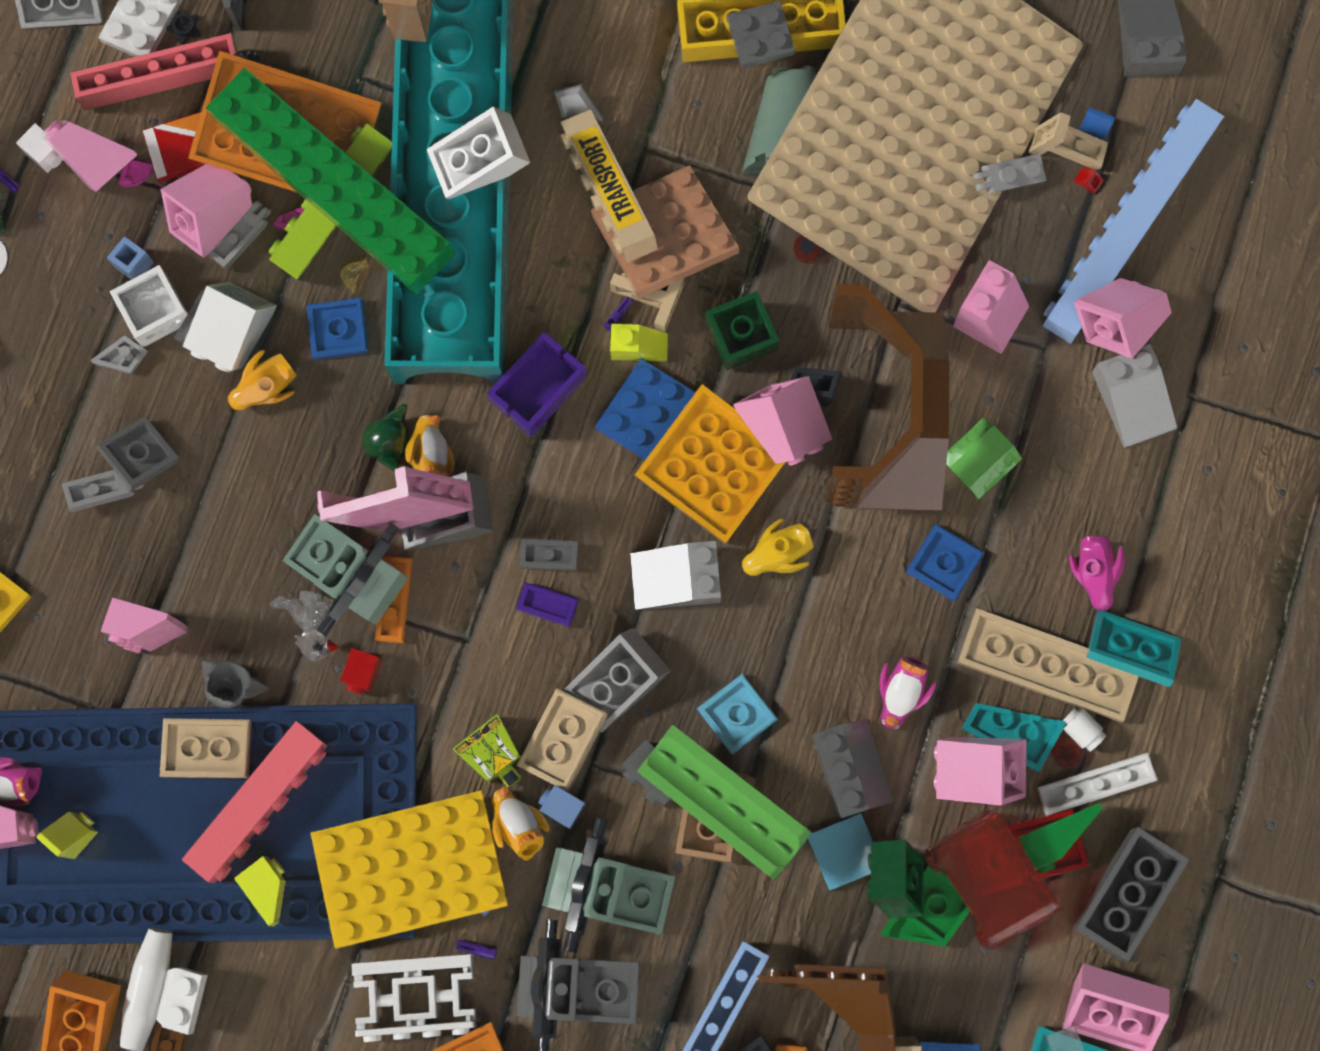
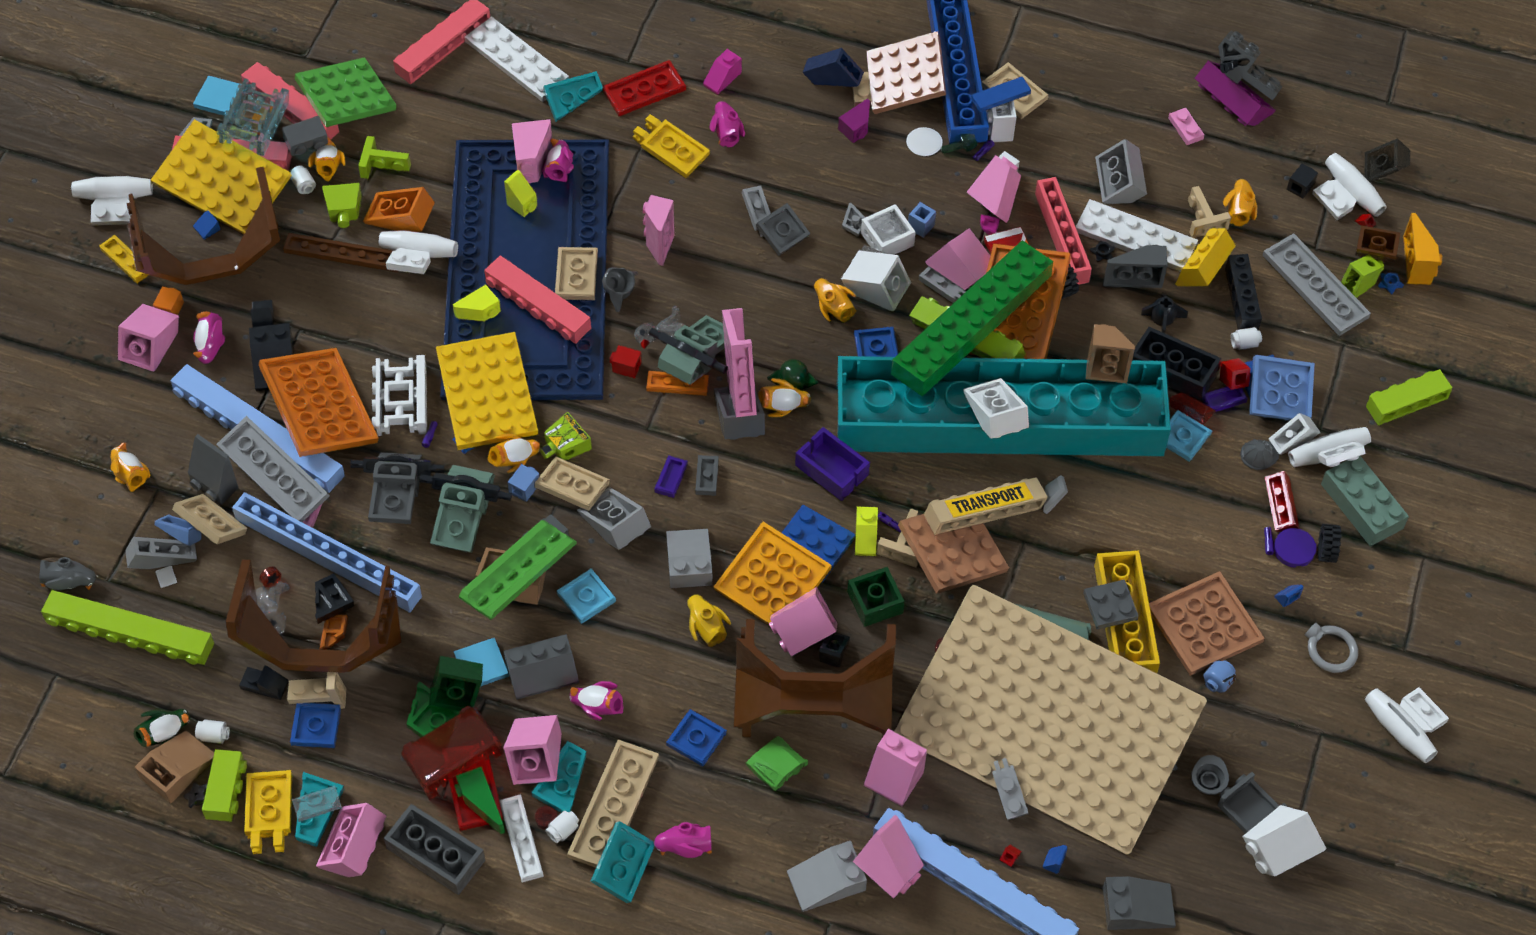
camera: 85 degrees right, 20 degrees down
(1068, 142) = (1037, 836): tan bracket -> none

